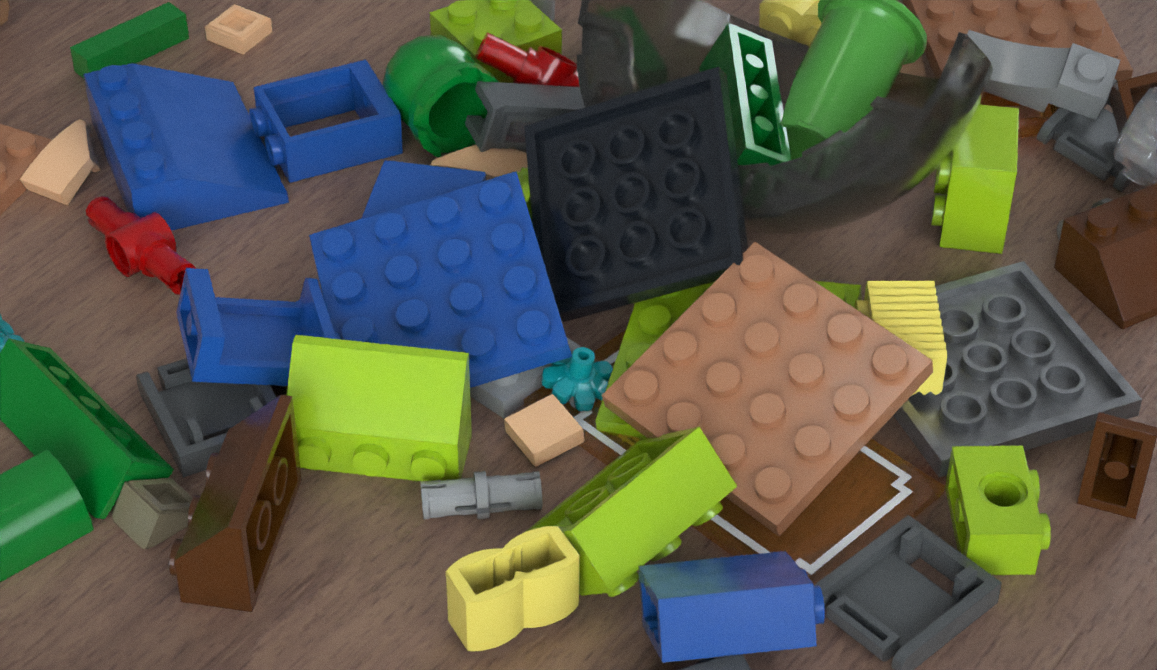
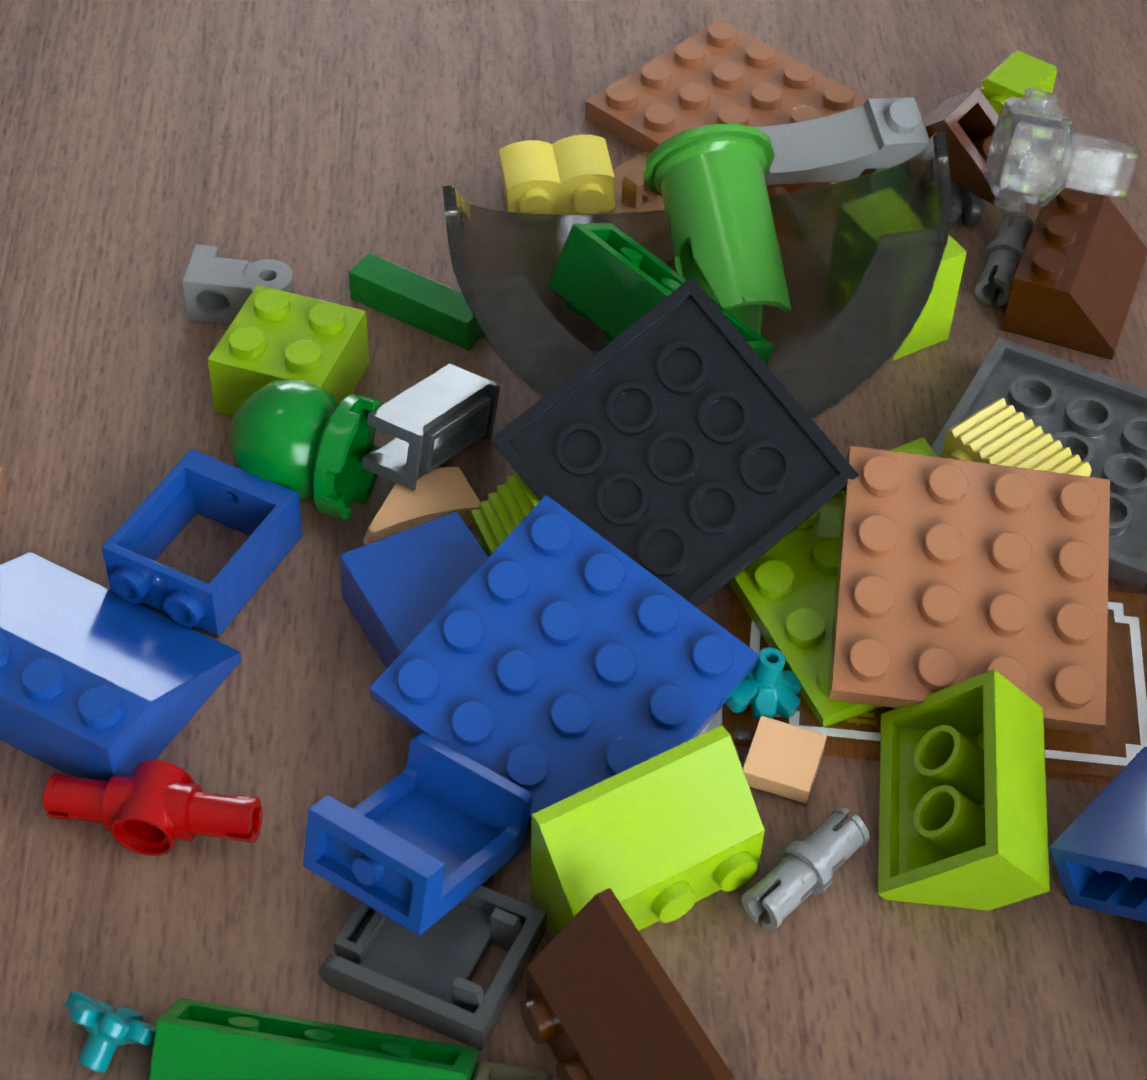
camera: 40 degrees left, 5 degrees up
(512, 588) = (971, 949): light yellow brick -> none
(528, 66) = (384, 369): red pin -> none

